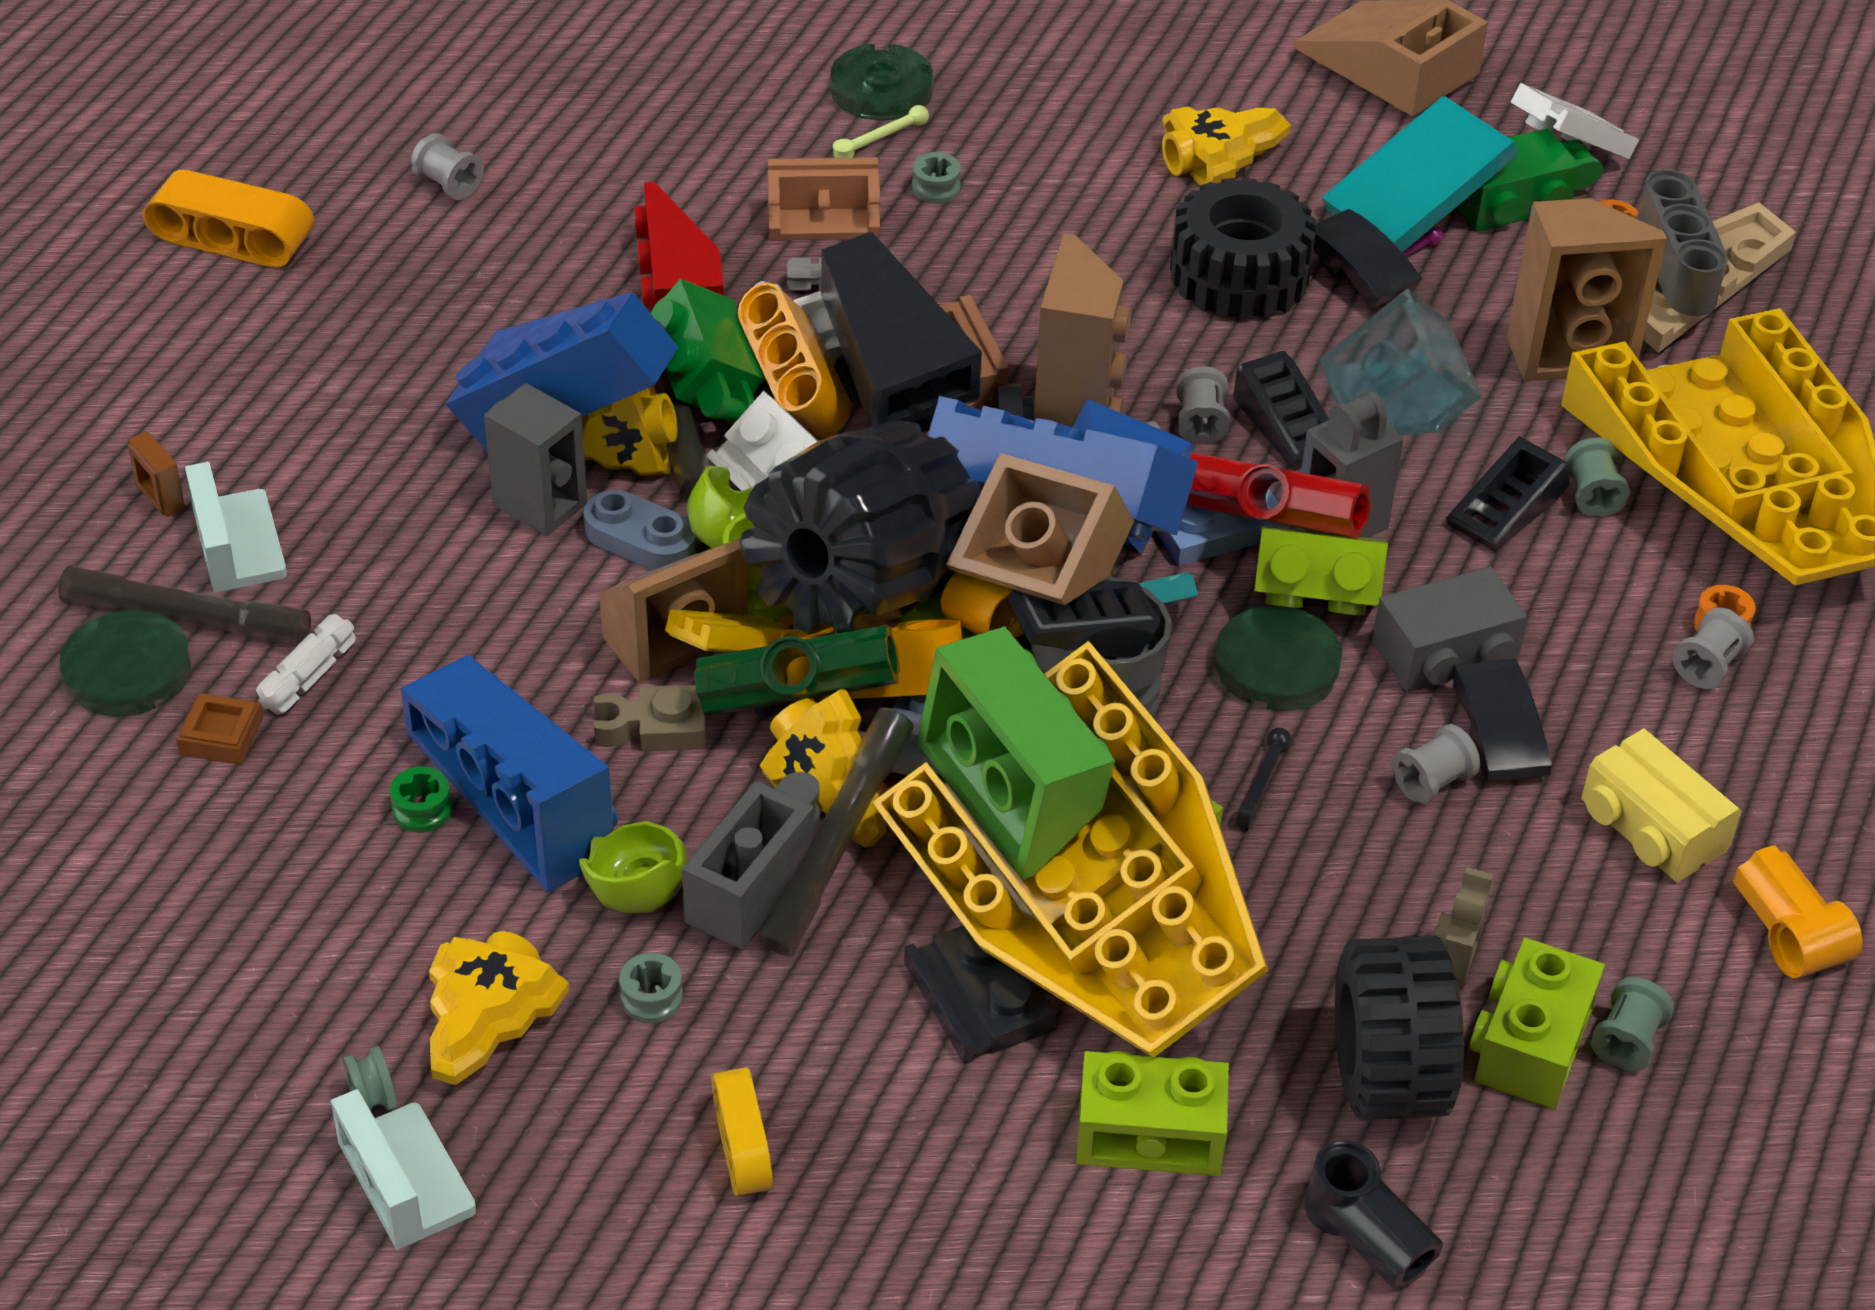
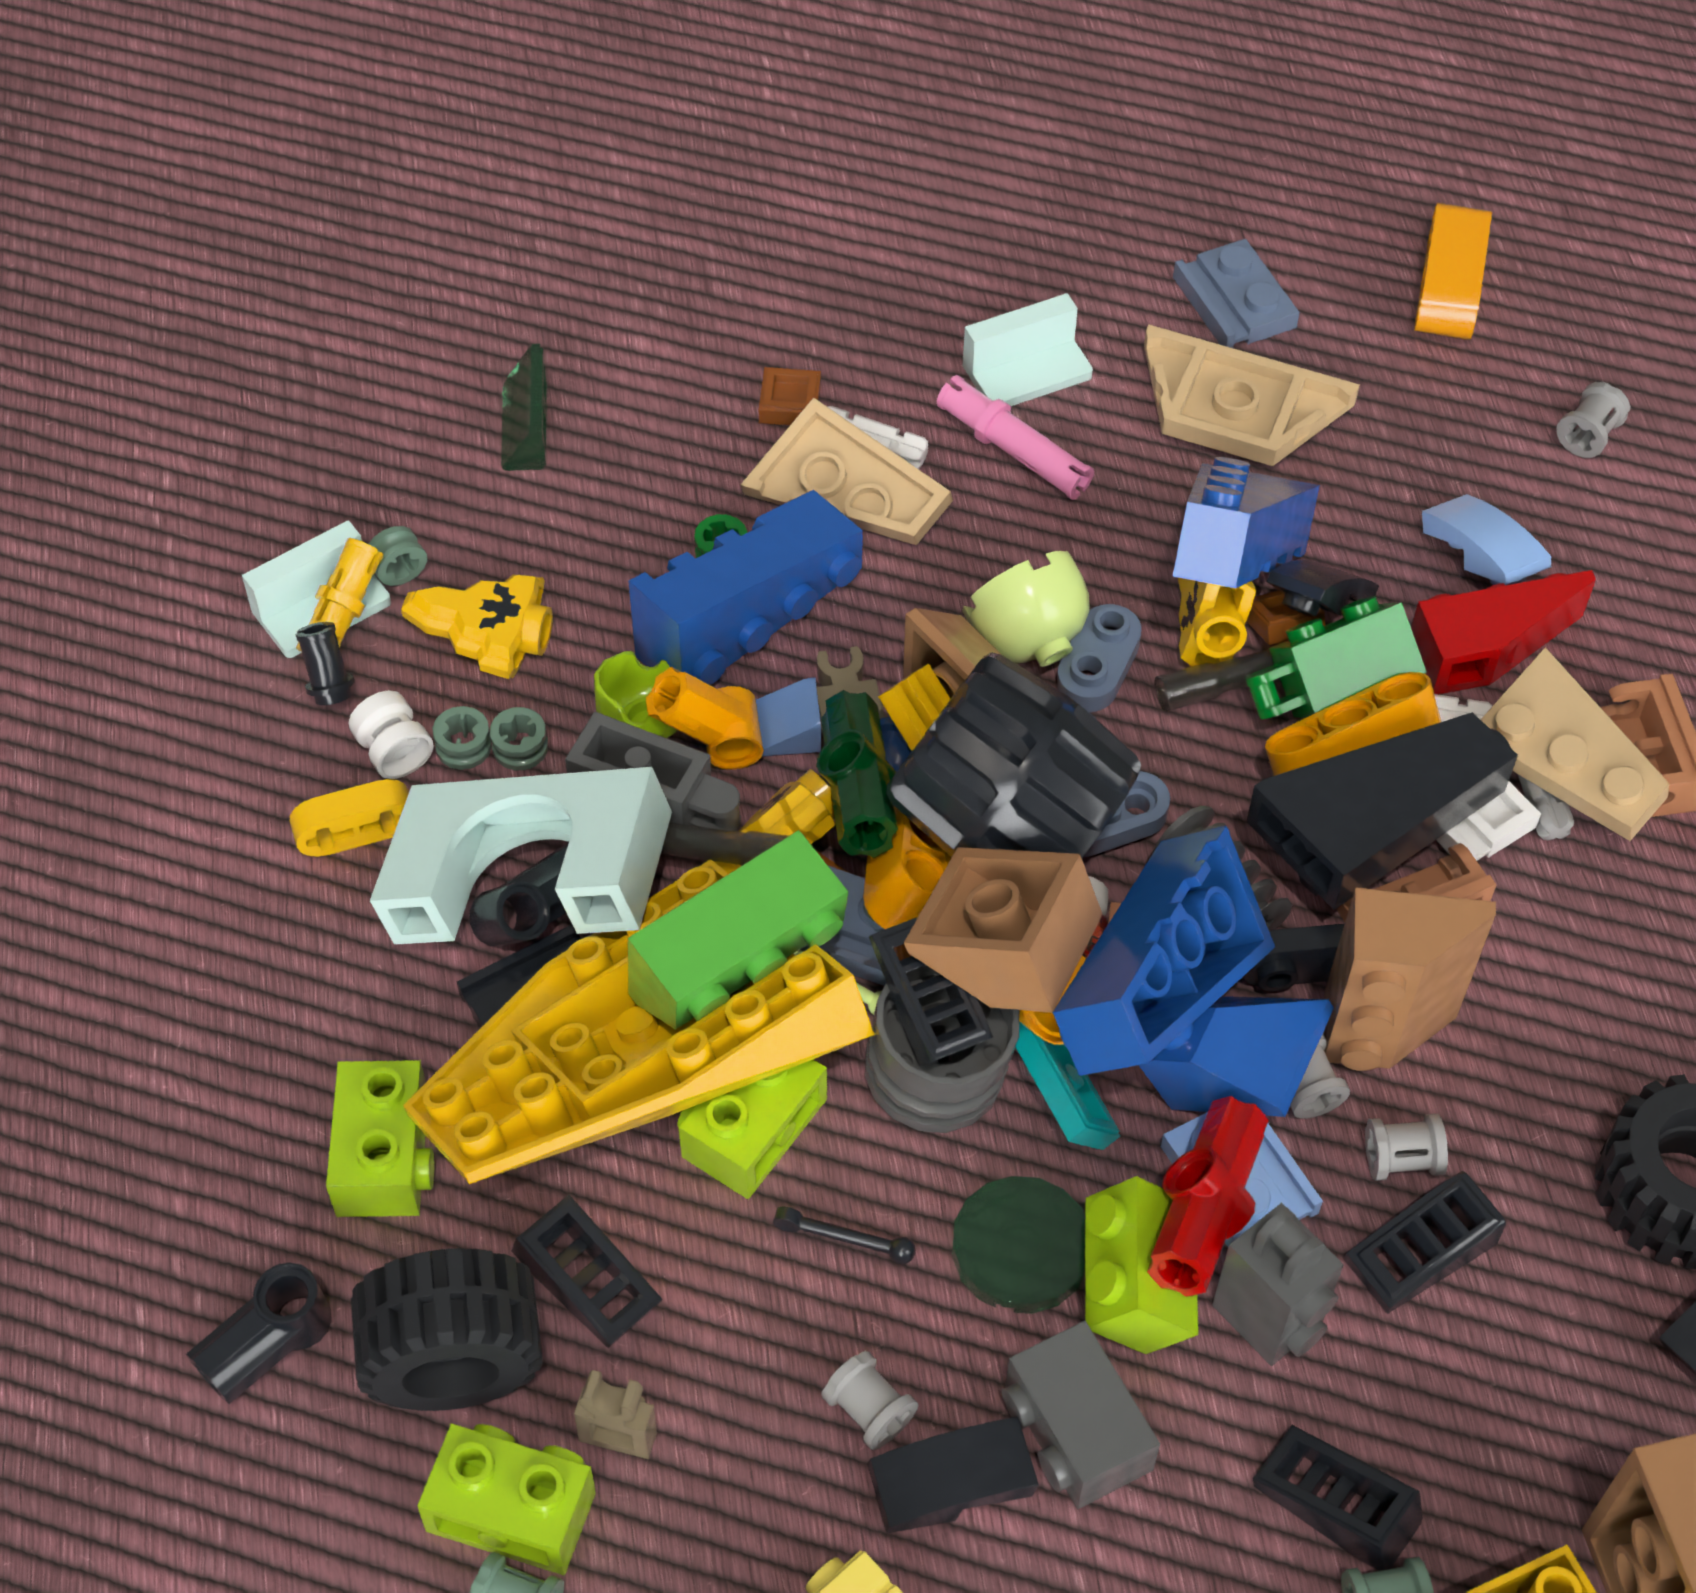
camera: 85 degrees right, 10 degrees up
(125, 662) = (855, 320): clear green tile -> none
(156, 474) = (1083, 281): dark orange tile -> none
(175, 953) = (525, 413): none -> clear green slope
(194, 374) = (1236, 294): none -> sand blue plate
(252, 619) = (919, 389): clear smoke piece -> none
(323, 561) = (996, 424): none -> bright pink pin
(340, 390) = (1239, 398): none -> tan wing
(351, 689) = (851, 473): none -> tan wing
(396, 1095) = (346, 587): none -> yellow pin
(536, 458) = (1135, 540): dark grey brick -> none
(537, 1150) = (324, 664): none -> black pin
(592, 240) = (1489, 538): none -> light blue slope
(598, 542) = (1031, 610): none -> yellowish green cylinder
(633, 1054) = (463, 720): none -> sand green bush
(634, 1091) = (394, 740): none -> white wheel
(673, 758) = (790, 719): none -> medium blue slope
(681, 800) = (719, 717): none -> light orange piece
(714, 505) = (1123, 702): lime hair -> none
(760, 441) = (1208, 743): white plate -> none
(790, 237) = (1576, 749): none -> tan wing
(828, 859) = (459, 828): none -> light aqua arch
(885, 972) = (530, 894): none -> black piece
(1303, 968) = (588, 1237): none -> black slope
(1409, 361) = (1522, 1365): clear light blue slope -> none

